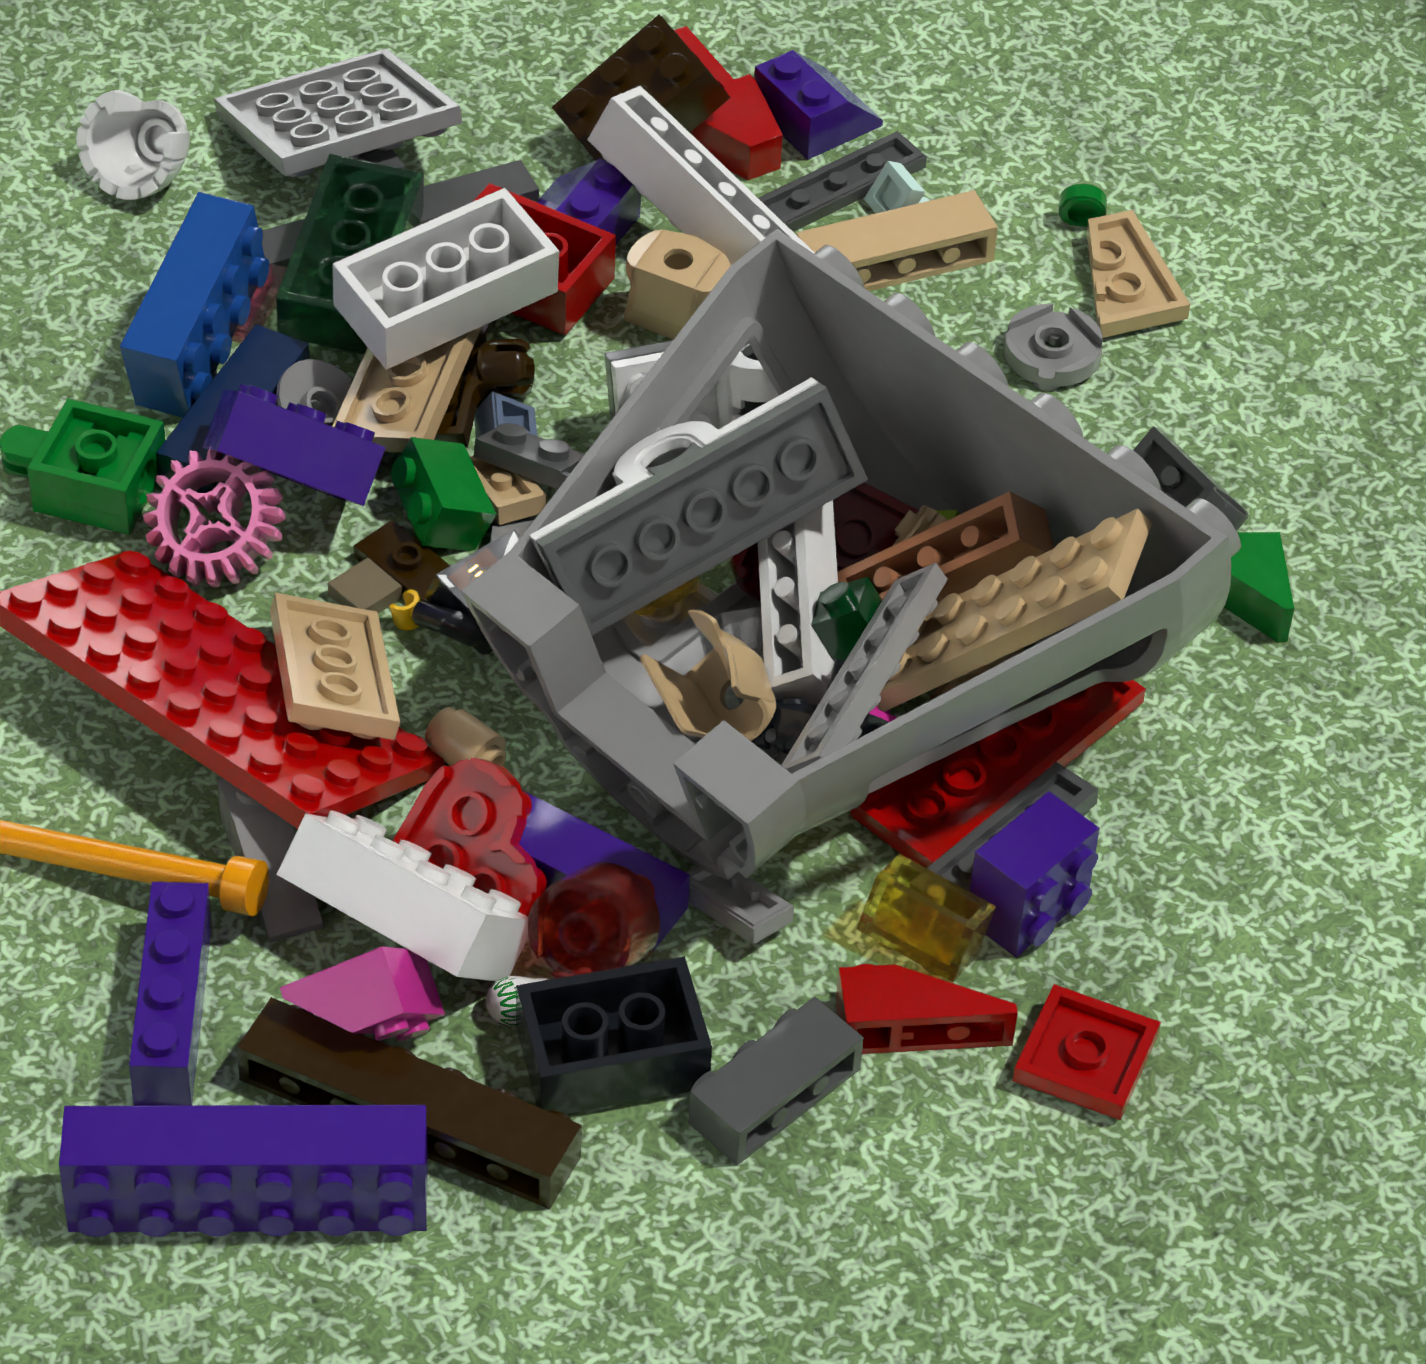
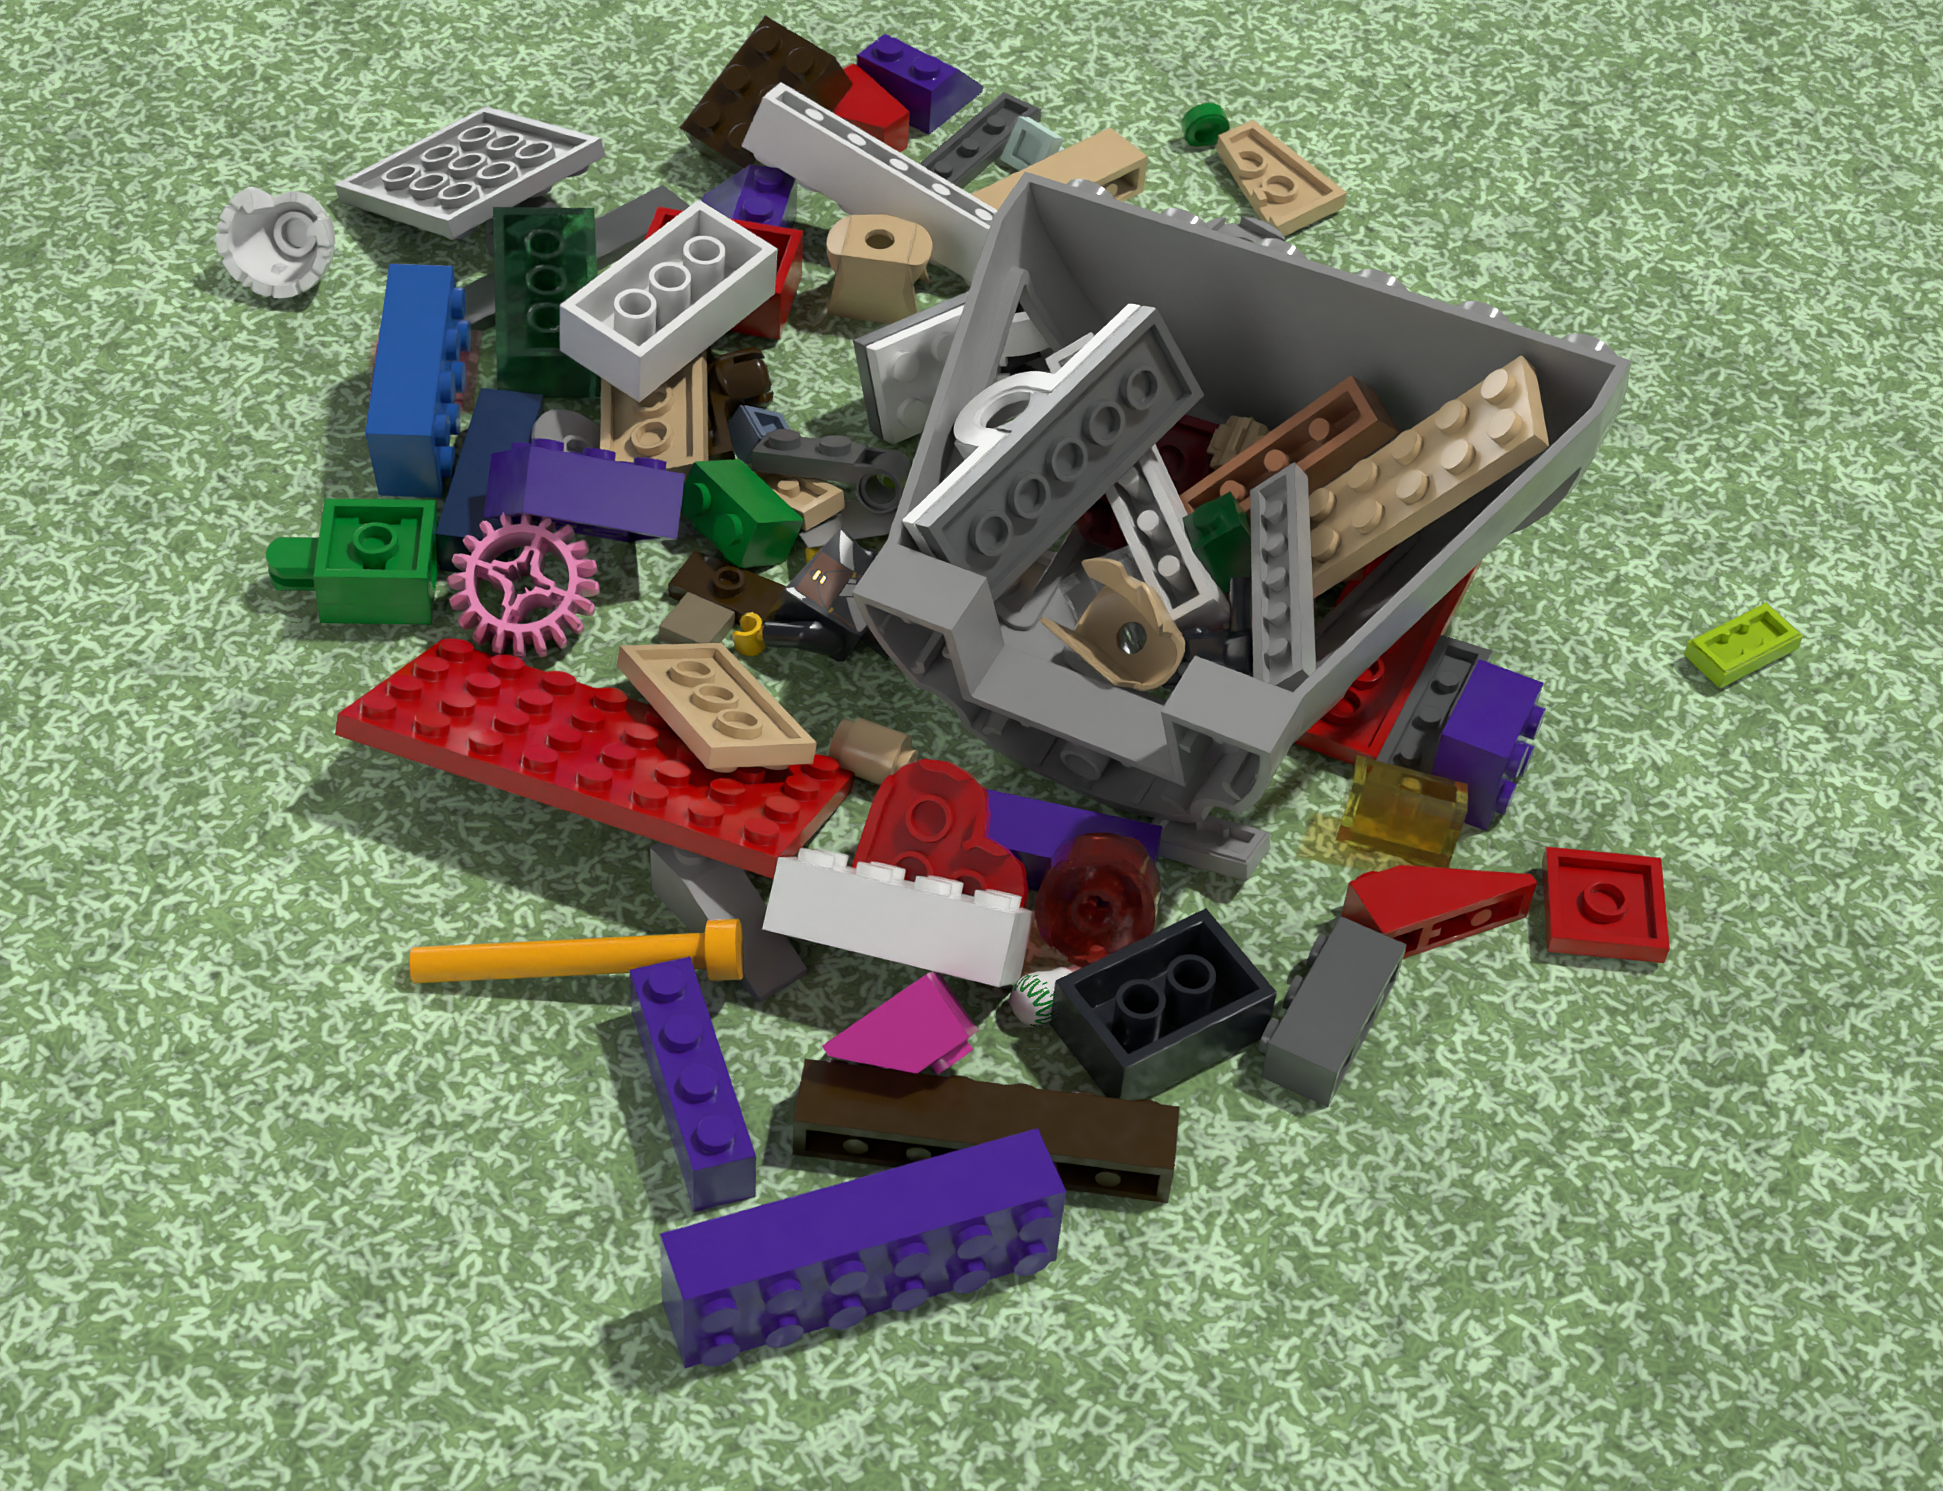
camera: 20 degrees left, 0 degrees up
(1360, 843) = (1743, 645): none -> lime plate

